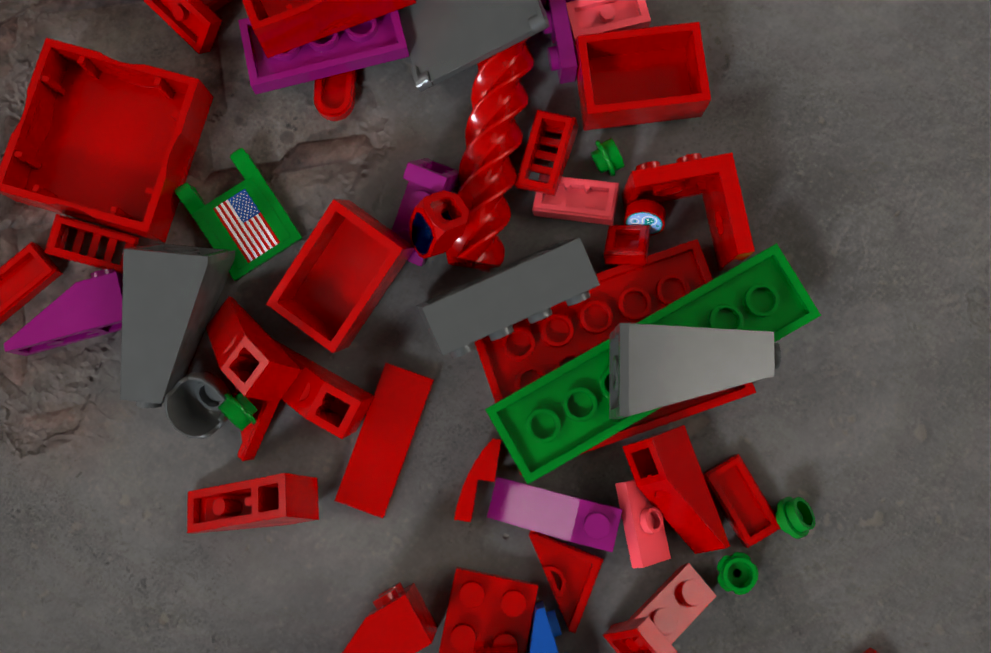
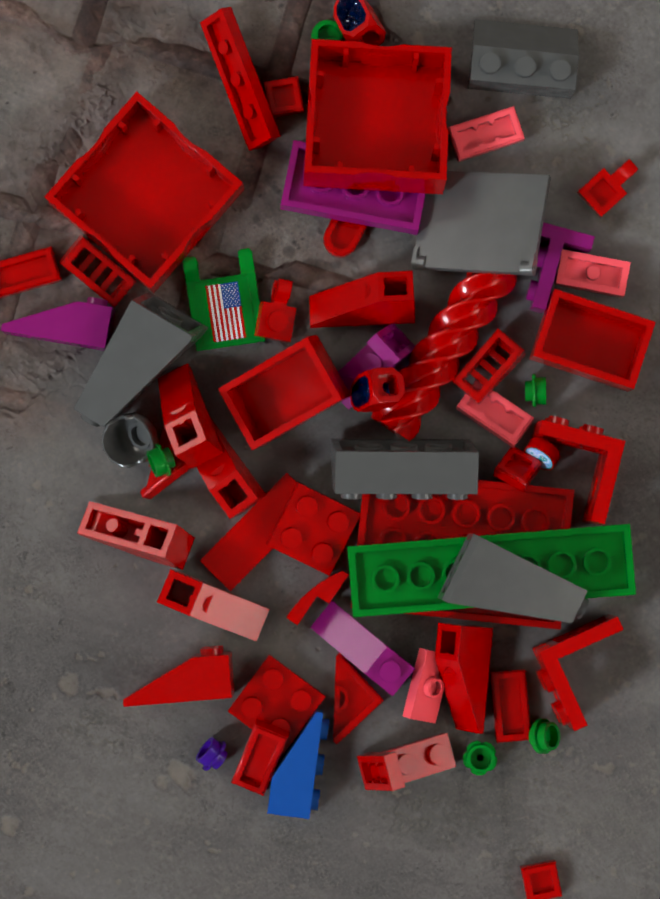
camera: 15 degrees right, 5 degrees up
(300, 206) = (275, 318): none -> red plate
(366, 543) = (213, 605): none -> slope
(395, 135) = (366, 301): none -> red slope
(441, 408) = (313, 528): none -> red plate
(774, 443) = (552, 675): none -> red bracket

